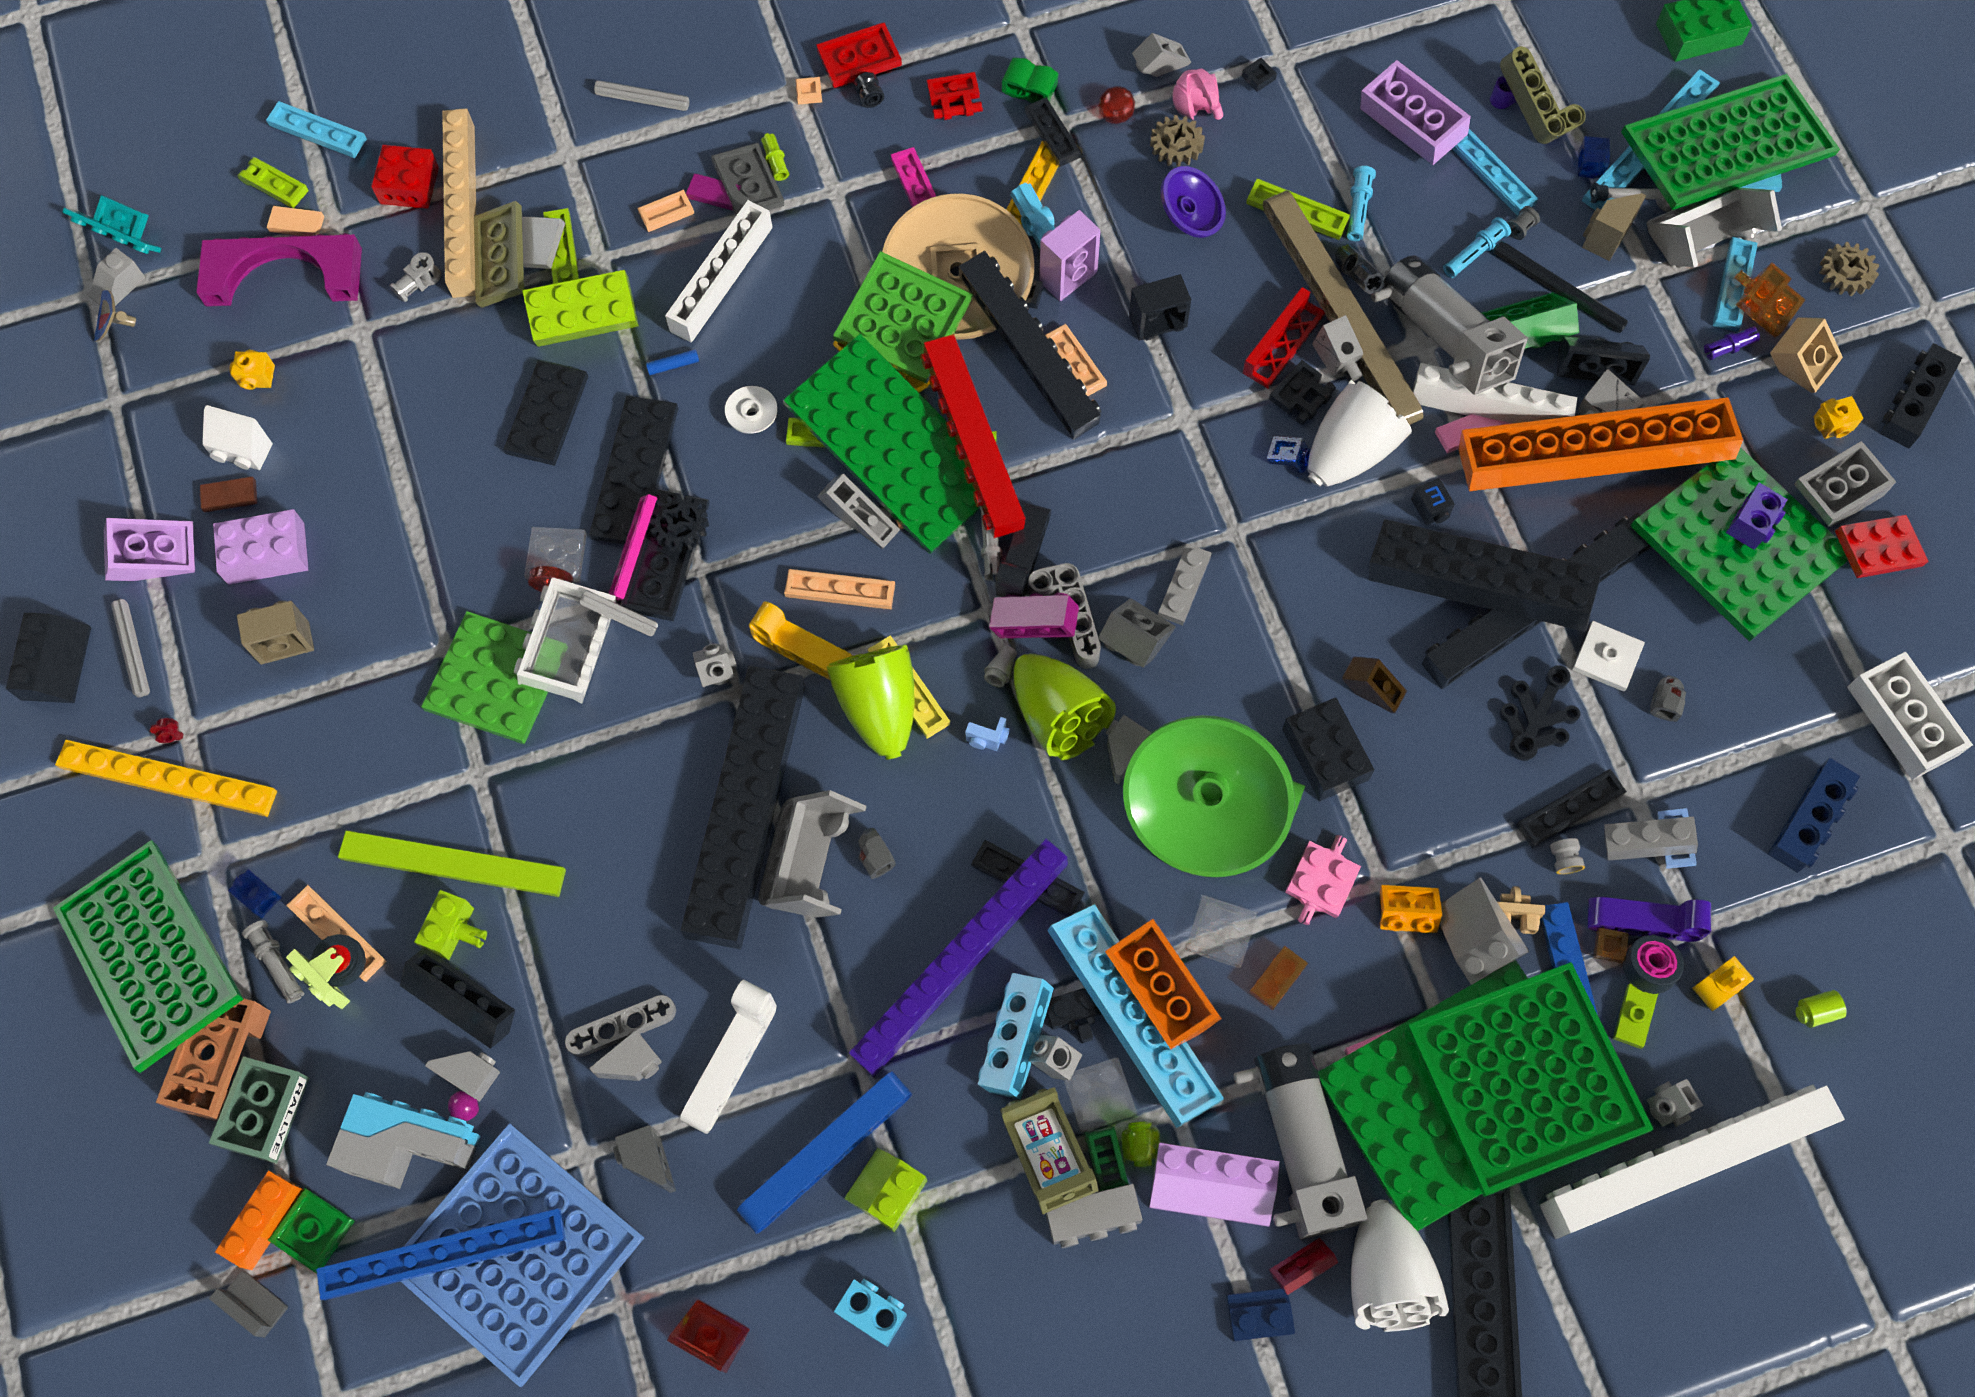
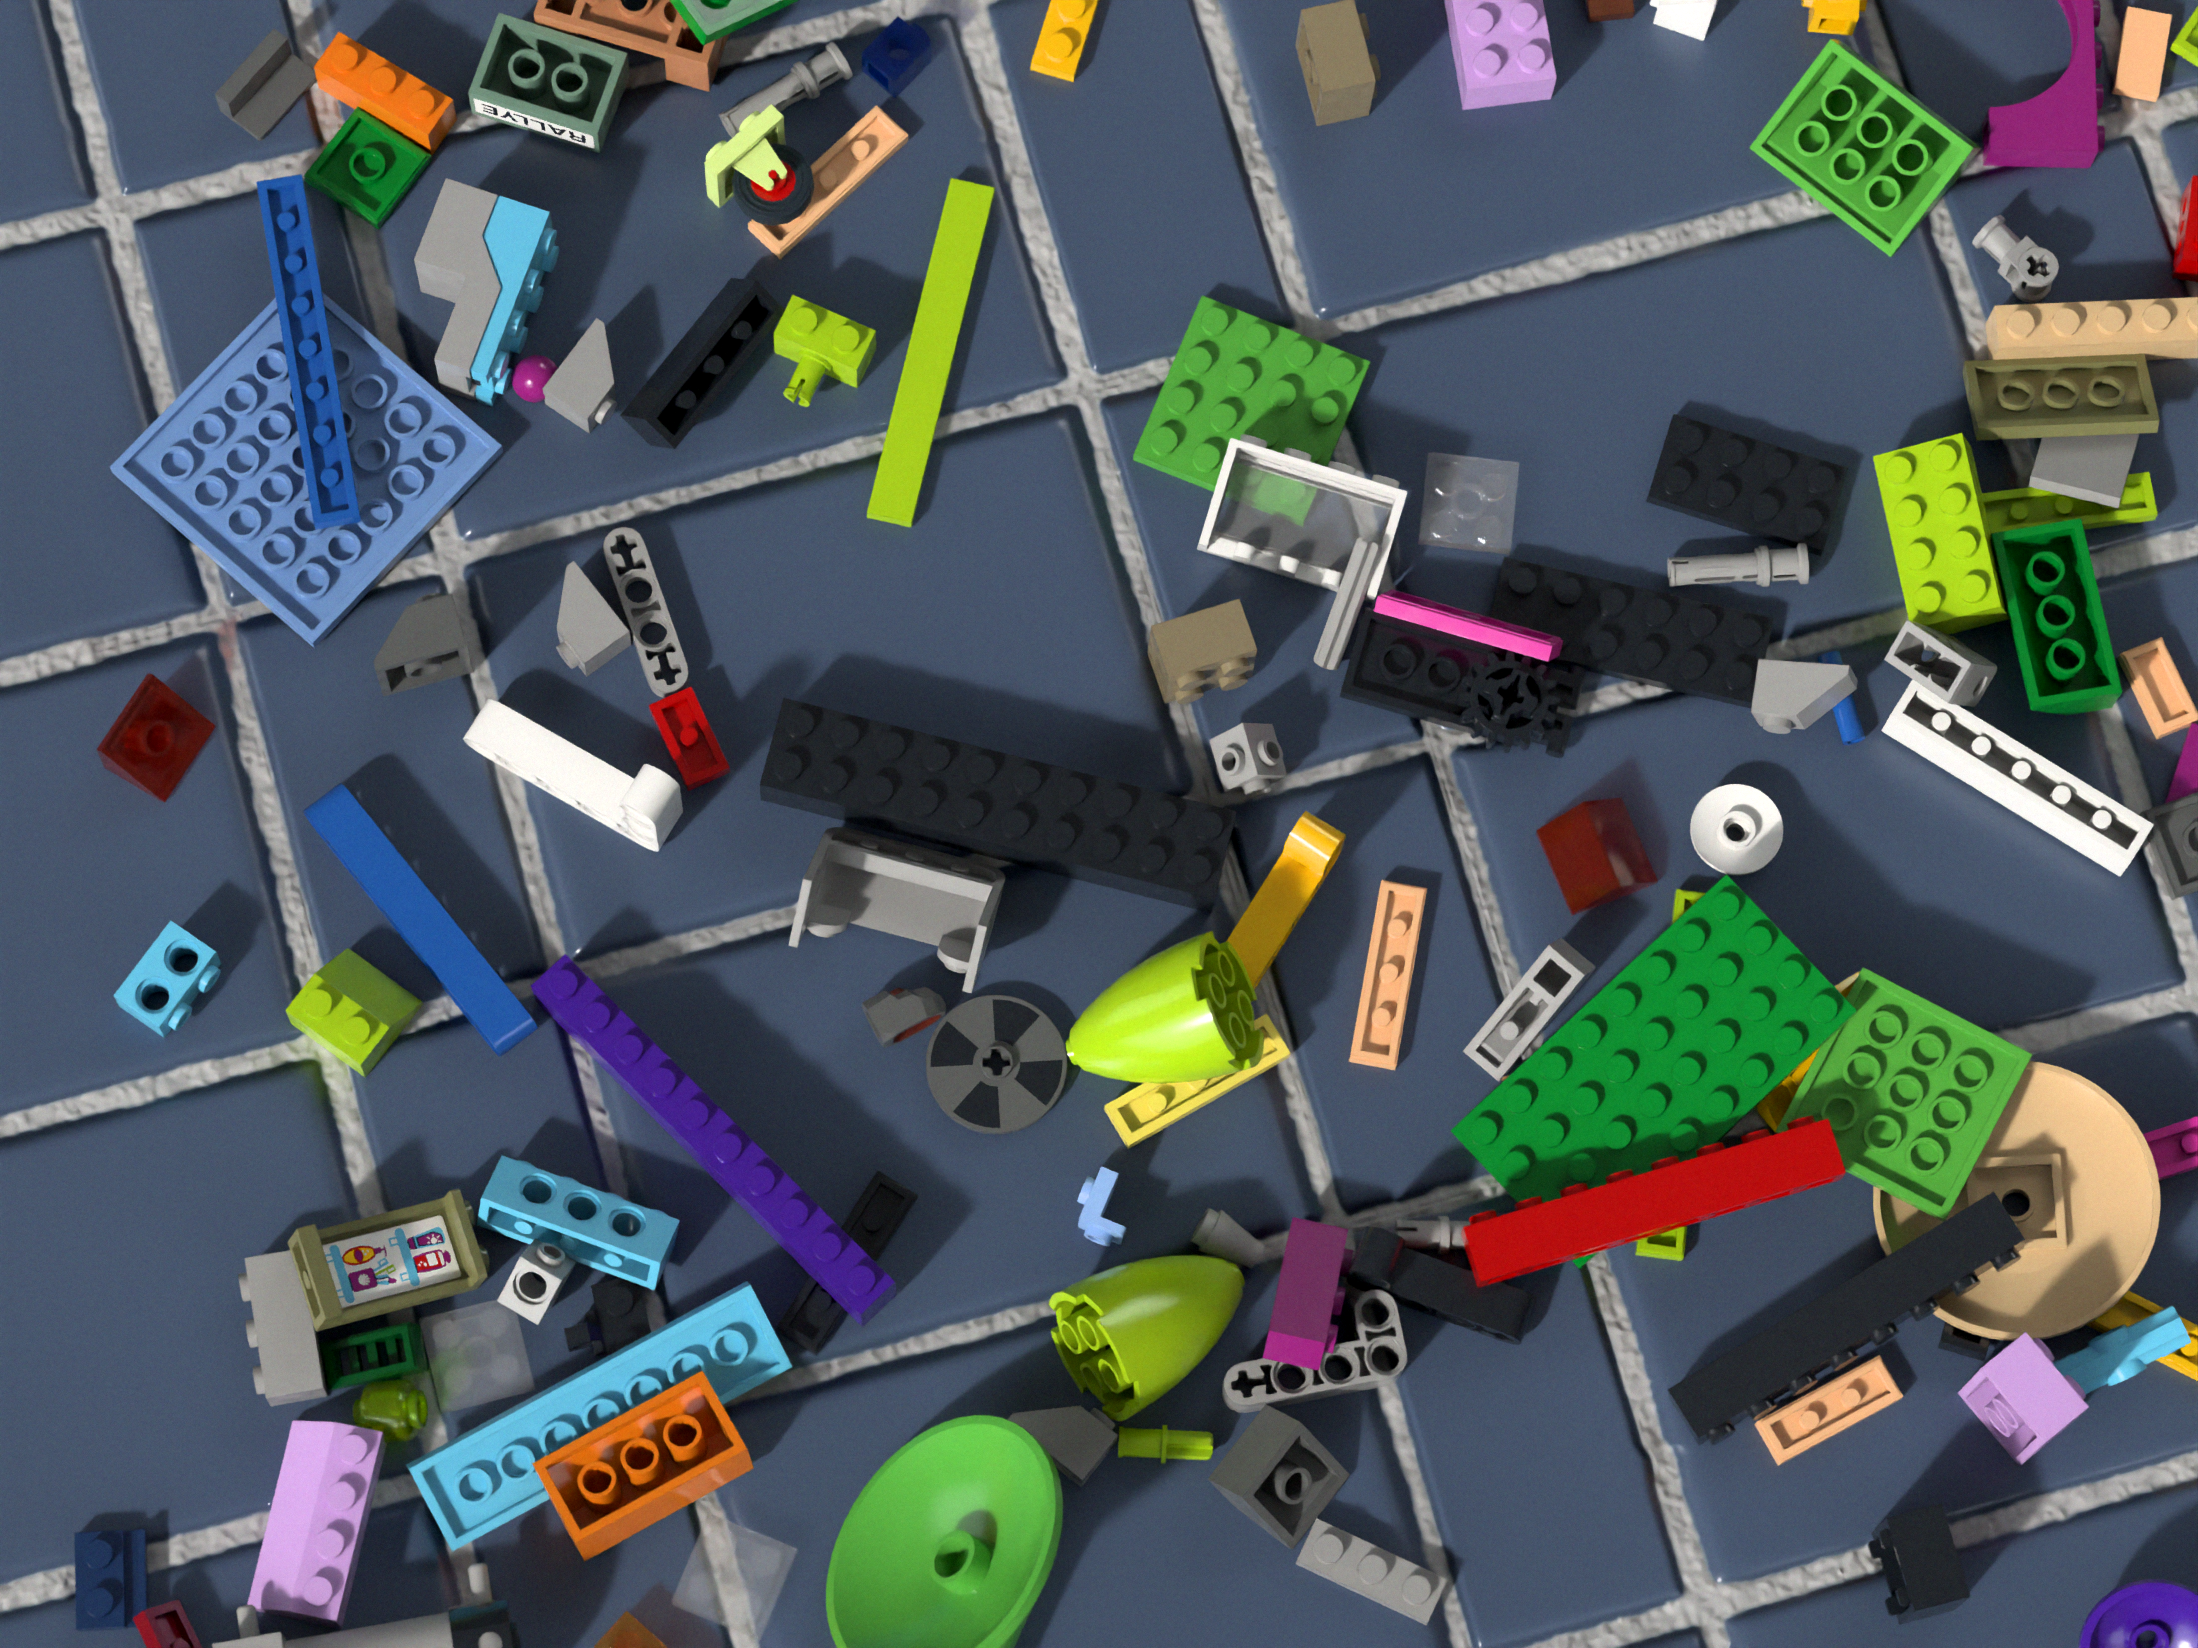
camera: 85 degrees right, 5 degrees up
(343, 354) = (1864, 147): none -> bright green slope
(542, 576) = (1416, 484): clear red piece -> none
(595, 402) = (1759, 566): none -> light grey pin
(628, 247) = (2057, 618): none -> green slope
(650, 690) = (1202, 652): none -> dark tan brick
(656, 303) = (1952, 673): none -> light grey torso
(671, 380) = (1798, 693): none -> light grey slope
(703, 992) = (689, 738): none -> red plate
(767, 483) = (1595, 854): none -> clear red slope
(918, 814) = (972, 1092): none -> dark grey piece
(1122, 693) = (1165, 1444): none -> lime axle

